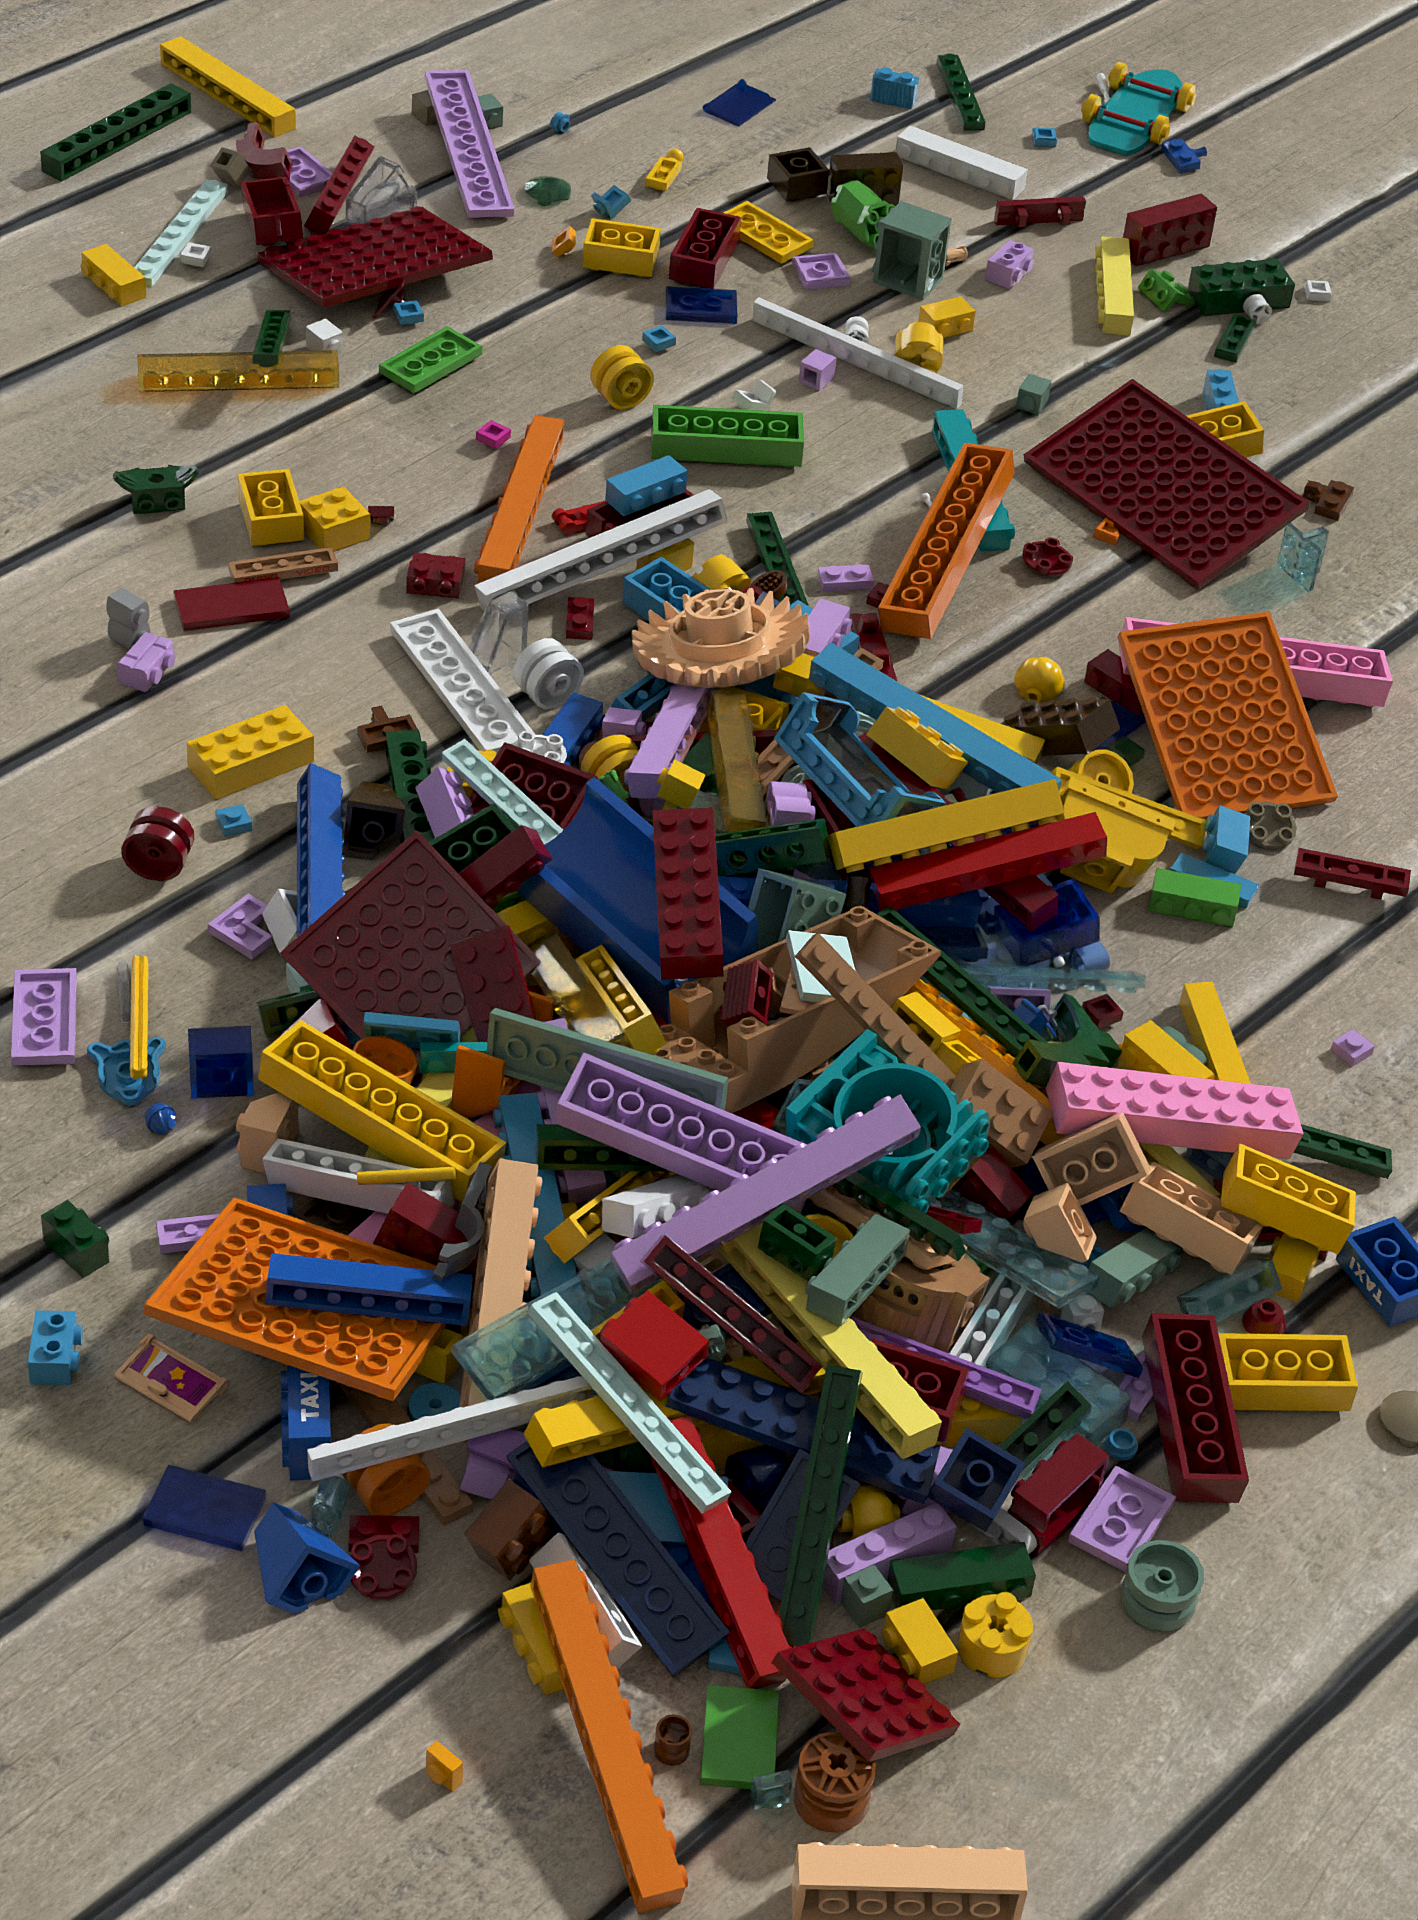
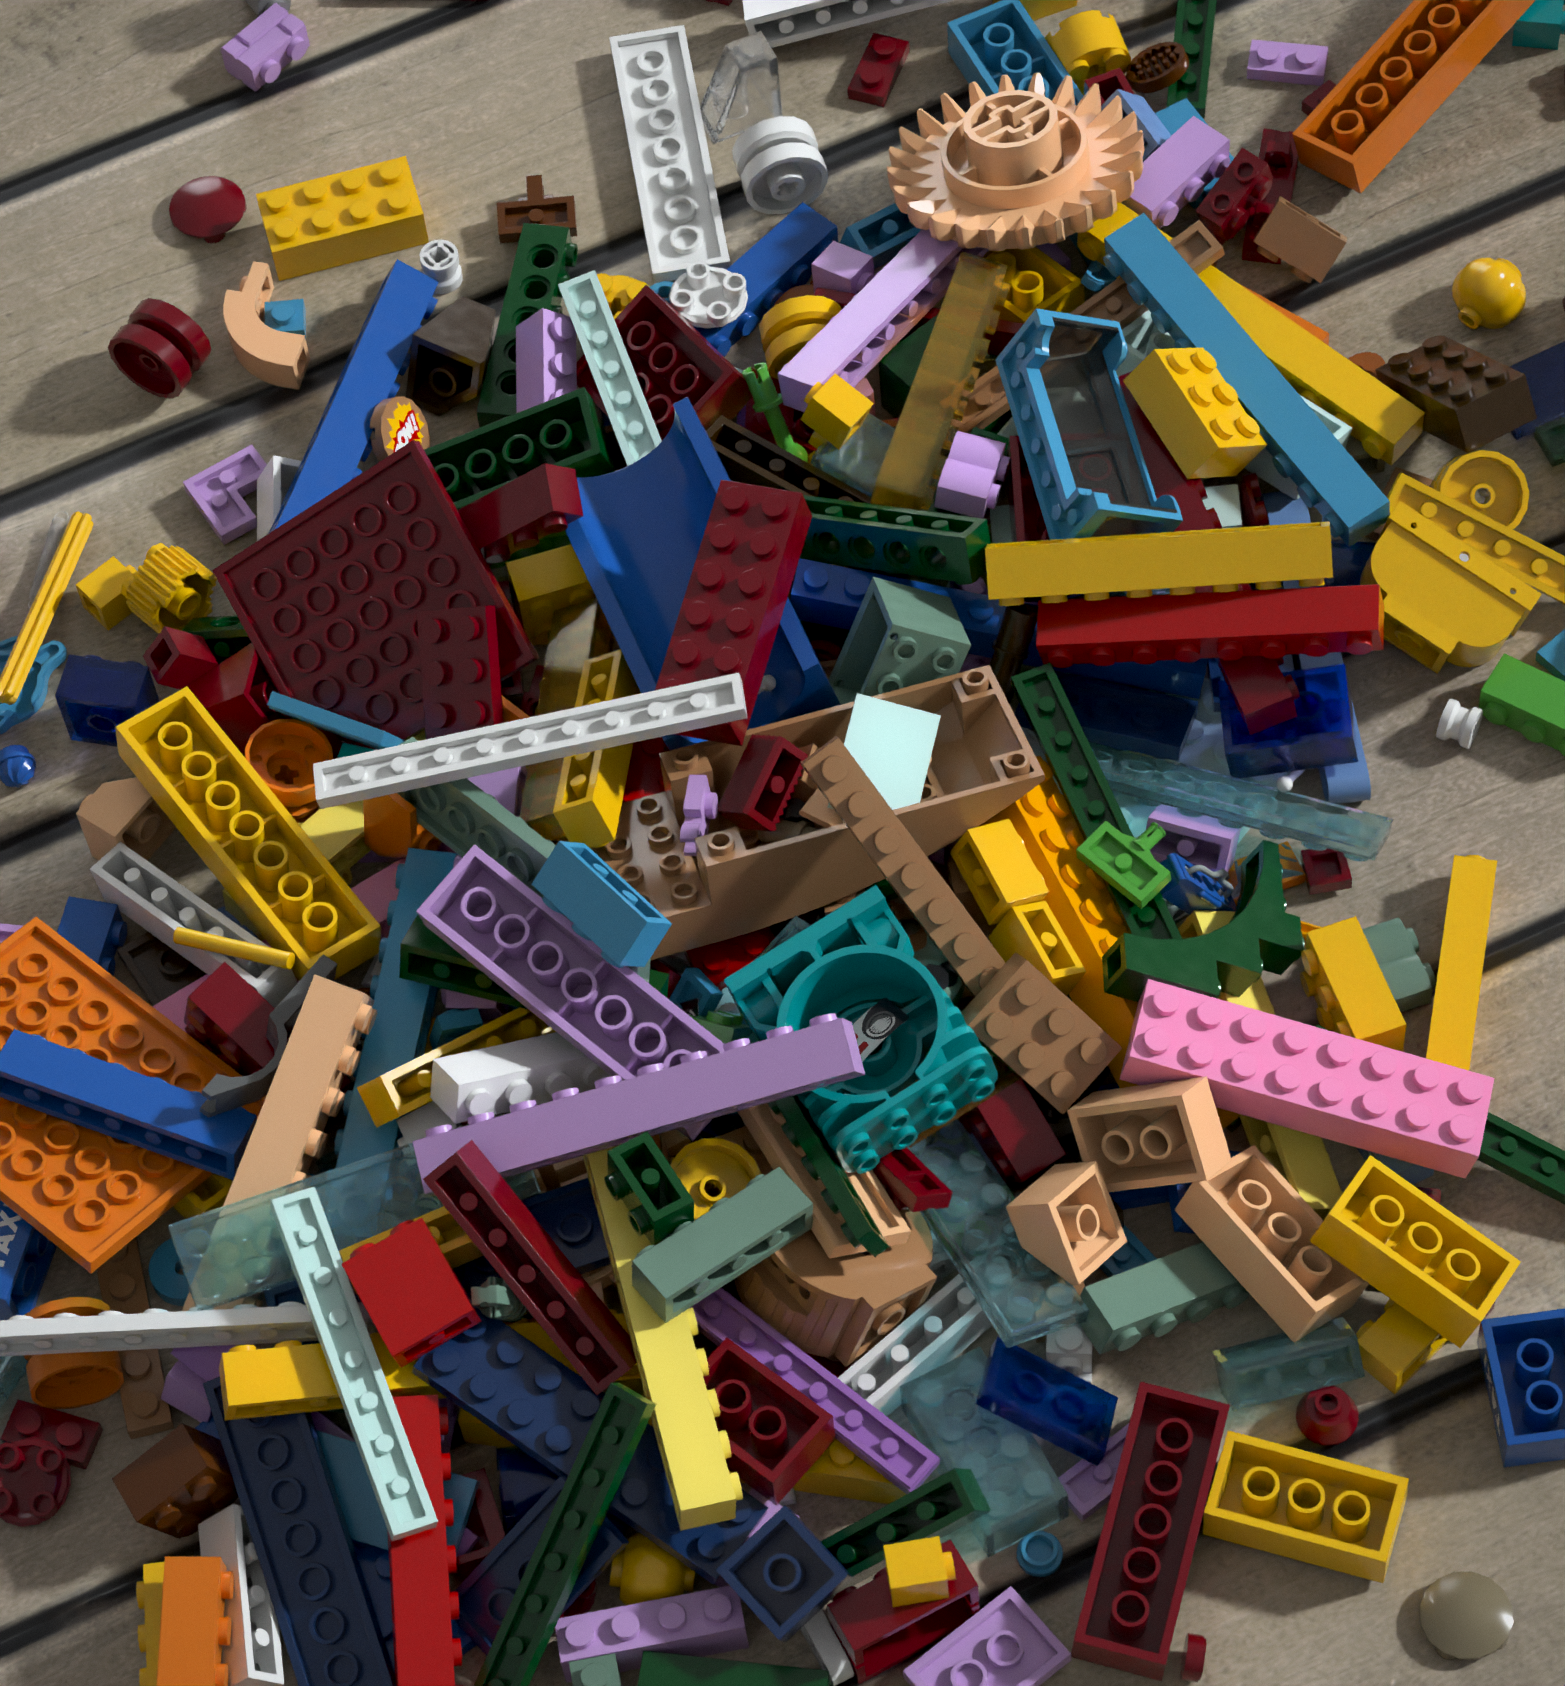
camera: 30 degrees right, 15 degrees up
(145, 763) = (207, 208): none -> dark red dish
(184, 1000) = (102, 592): none -> yellow brick
(221, 835) = (263, 351): none -> light nougat arch
(233, 986) = (169, 588): none -> yellow brick
(267, 1019) = (178, 658): none -> dark red brick
(336, 762) = (441, 262): none -> white wheel
(355, 860) = (397, 424): none -> tile
(578, 1198) = (453, 1025): none -> dark azure plate
(587, 988) = (529, 740): none -> white plate
(692, 1070) = (601, 905): none -> dark azure brick
(713, 1018) = (698, 808): none -> lavender plate
(866, 633) = (1234, 194): none -> dark red plate
(911, 665) = (1299, 241): none -> medium nougat brick
(1000, 1006) = (1126, 861): none -> bright green plate
(1070, 1451) = (918, 1571): none -> yellow brick
(1144, 915) = (1459, 723): none -> white wheel
(1257, 1482) = (1193, 1657): none -> dark red tile

